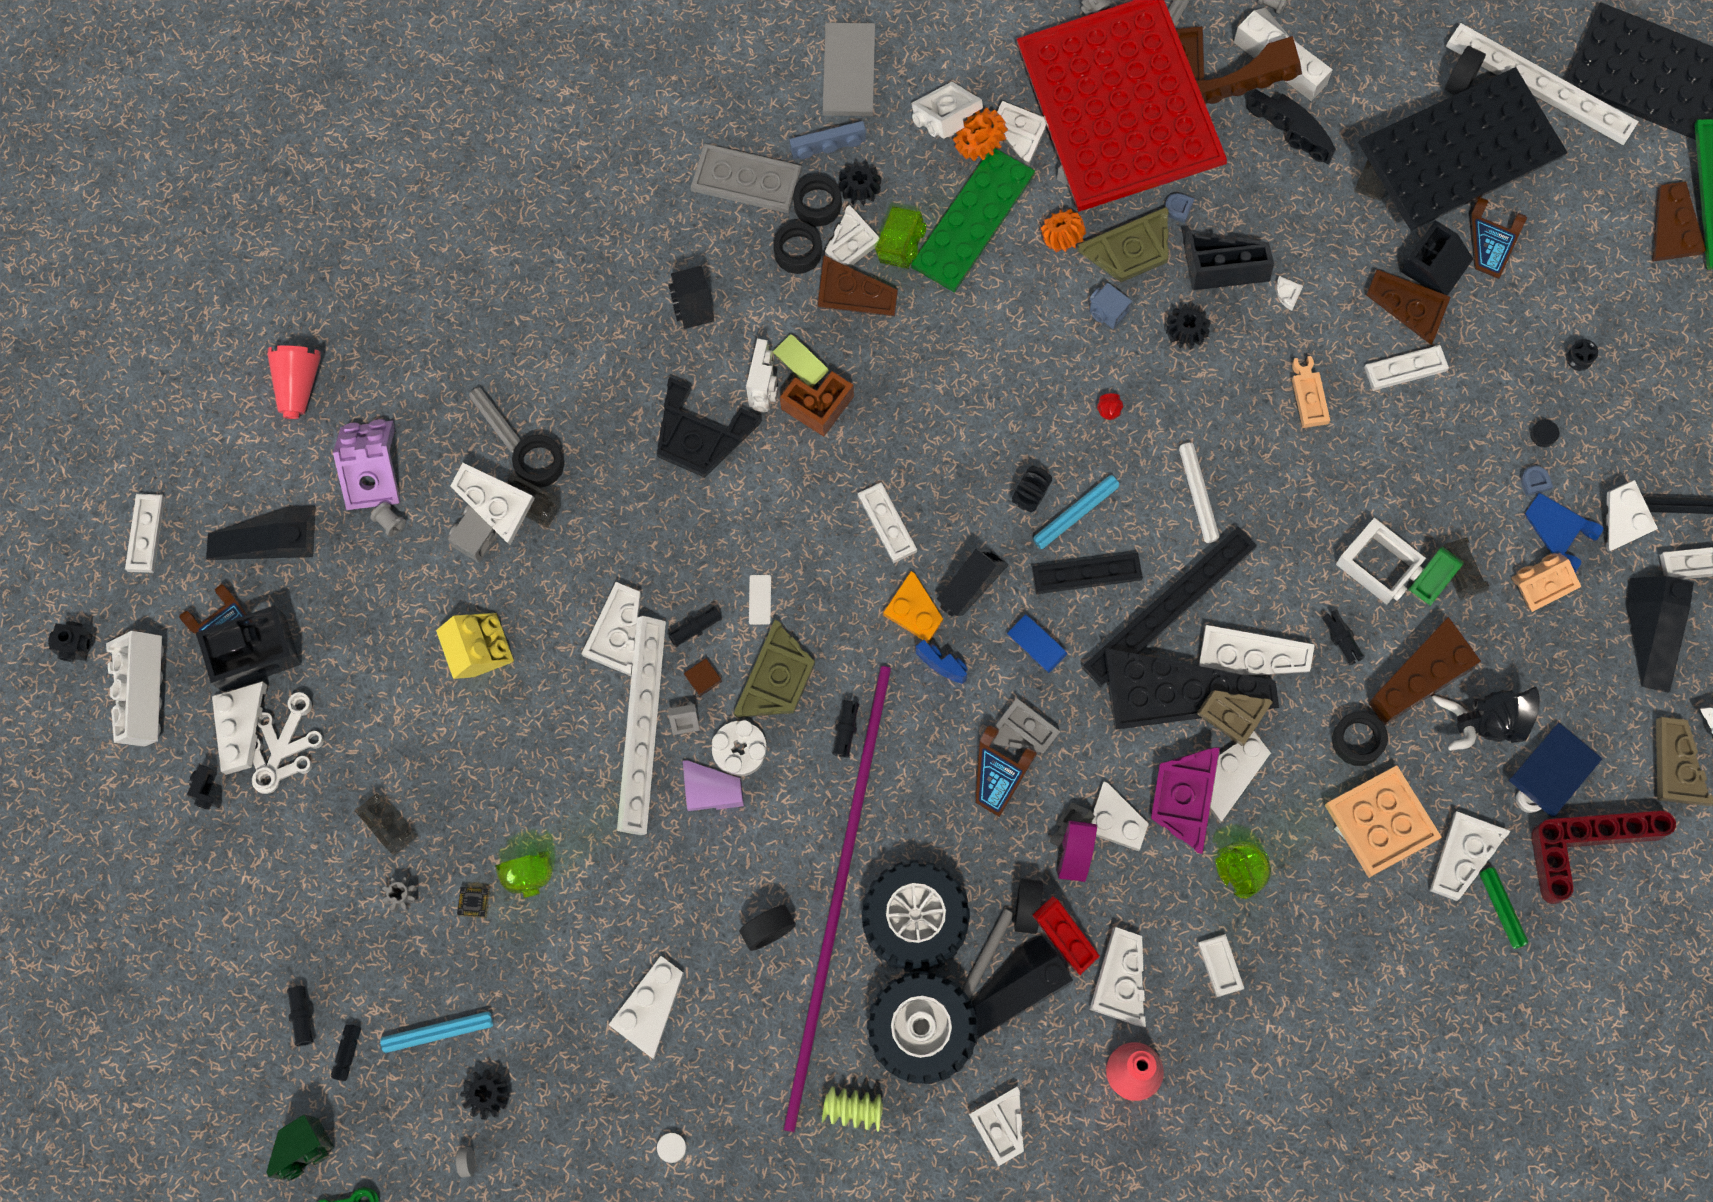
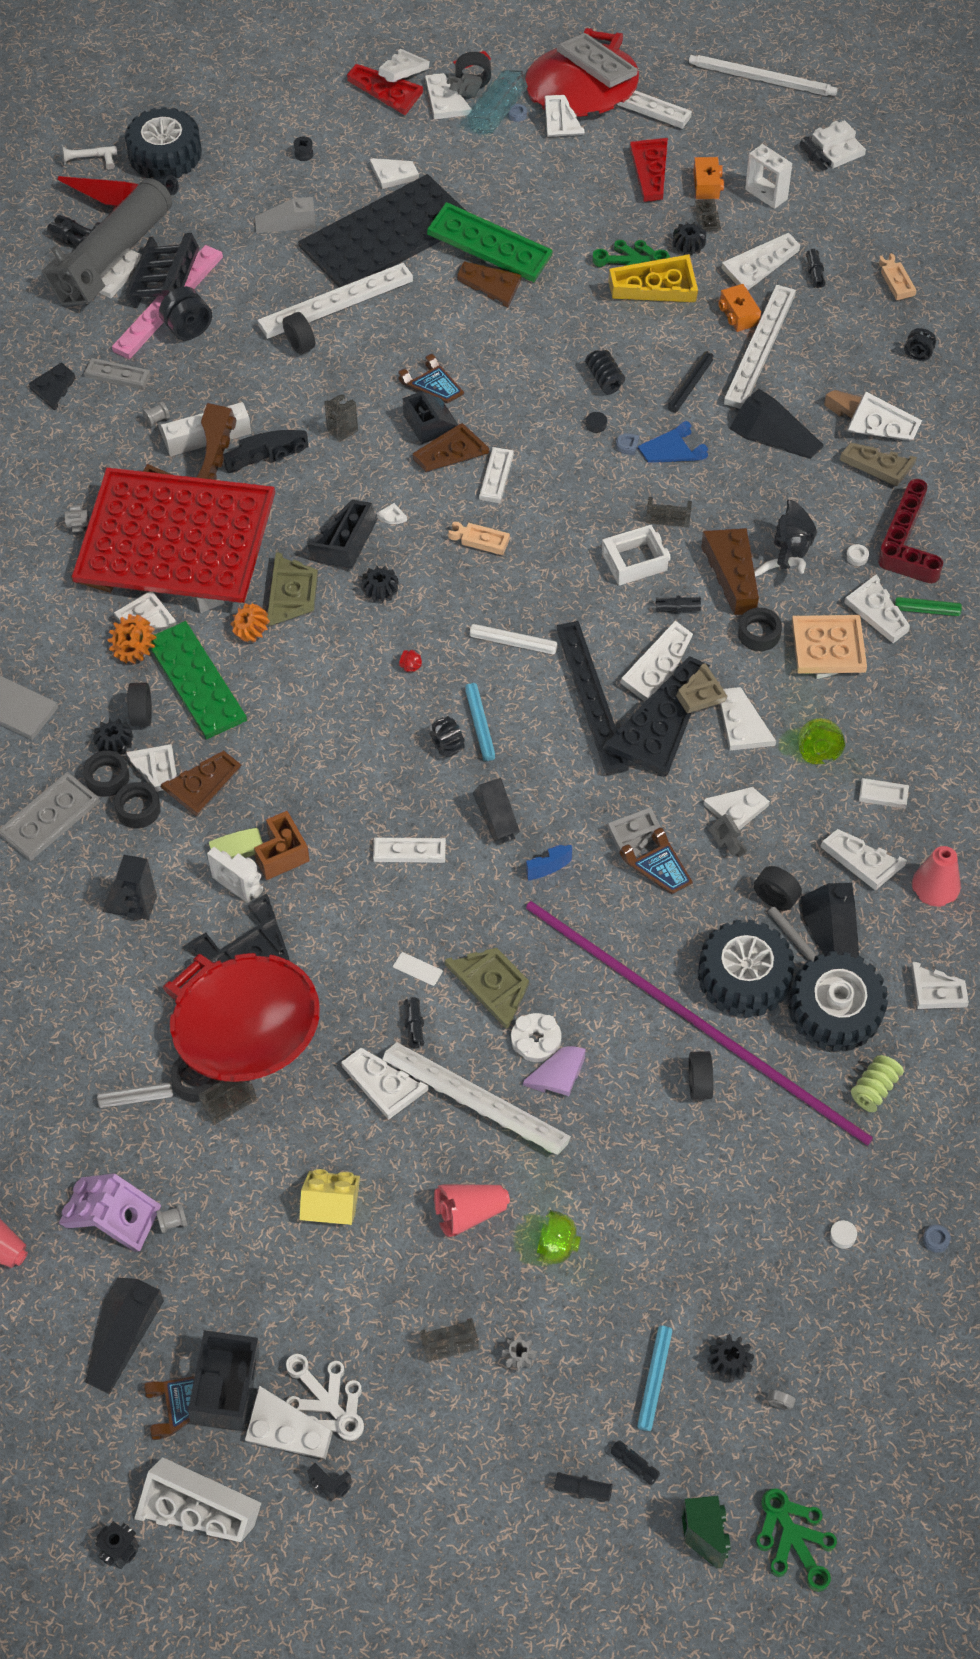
camera: 65 degrees left, 15 degrees down
(145, 533) = (49, 1437): white tile -> none
(472, 535) = (227, 1149): light grey brick -> none
(473, 902) = (556, 1299): tile -> none
(493, 500) = (214, 1117): white wing -> none
(523, 775) = (468, 1205): none -> coral cone
(608, 467) = (242, 1015): none -> red dish
(648, 1008) = (717, 1200): white wing -> none
(683, 718) = (488, 1064): light grey tile -> none
(702, 677) = (460, 1037): reddish brown tile -> none
(827, 140) = (60, 743): sand blue plate -> none
(845, 729) = (564, 952): black pin -> none
(900, 237) = (180, 729): clear neon green brick -> none
(906, 184) = (139, 704): none -> black tyre
(914, 609) = (493, 863): light orange wing -> none
(945, 109) = (95, 650): white plate -> none
(1037, 643) = (571, 791): blue slope -> none
(1066, 935) = (812, 871): red tile -> none
(1078, 851) = (748, 833): magenta slope -> none
(1087, 573) = (532, 738): black tile -> none
(1109, 305) = (329, 623): sand blue brick -> none
(1179, 206) = (280, 545): sand blue tile -> none
(1185, 796) = (745, 750): magenta wing -> none
(1436, 576) = (667, 526): green tile -> none
(1462, 148) = (359, 358): black plate -> none
(1546, 581) = (706, 469): light nougat bracket -> none
(1555, 769) = (845, 529): dark blue tile -> none
(1588, 352) = (553, 374): black wheel -> none
(1619, 407) = (605, 371): none -> black piece
(1627, 515) = (686, 404): white wing -> none

